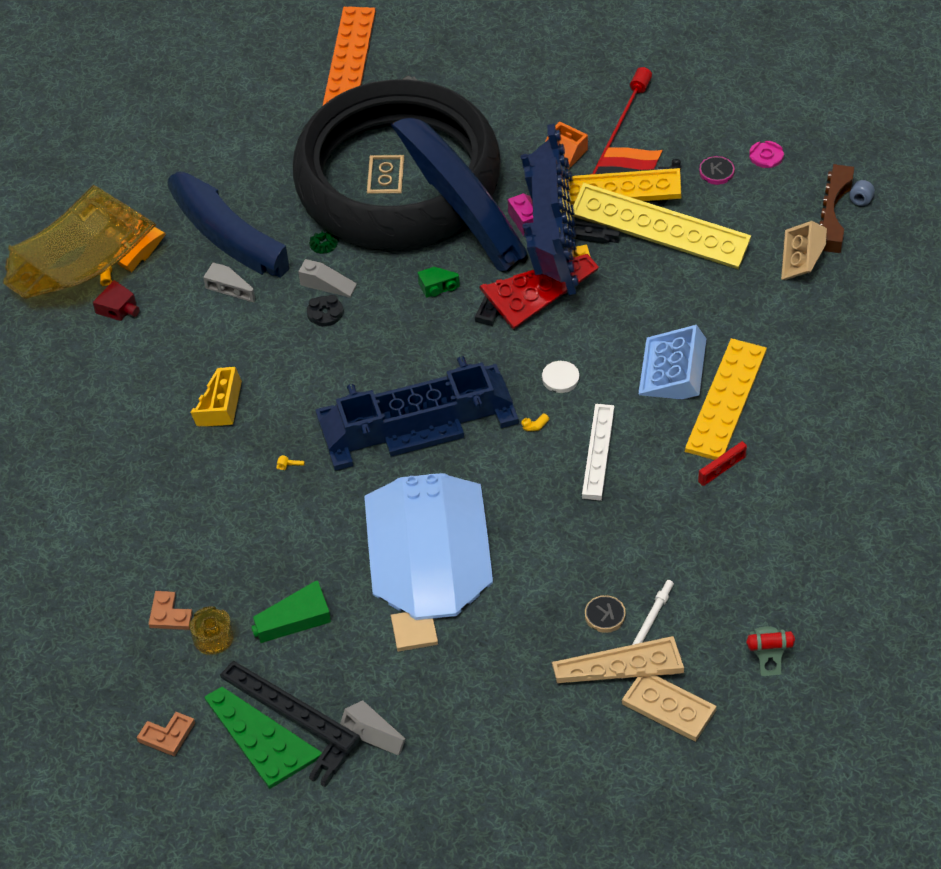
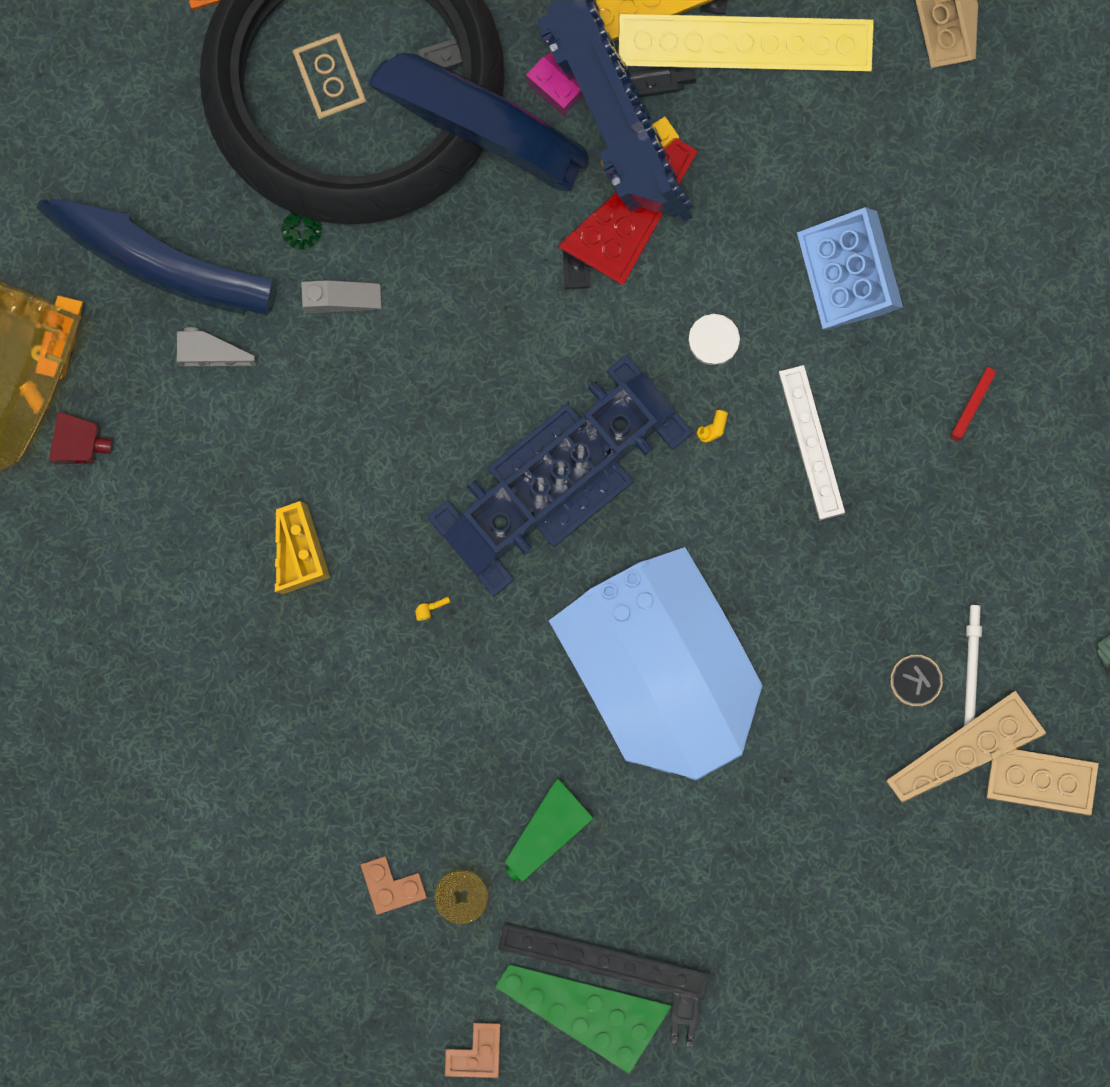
camera: 25 degrees left, 30 degrees up
(317, 316) = (345, 343): black plate -> none
(372, 727) = (710, 952): light grey slope -> none
(413, 633) = (699, 798): tan tile -> none
(437, 280) = (487, 244): green slope -> none
(725, 399) = (936, 296): yellow plate -> none

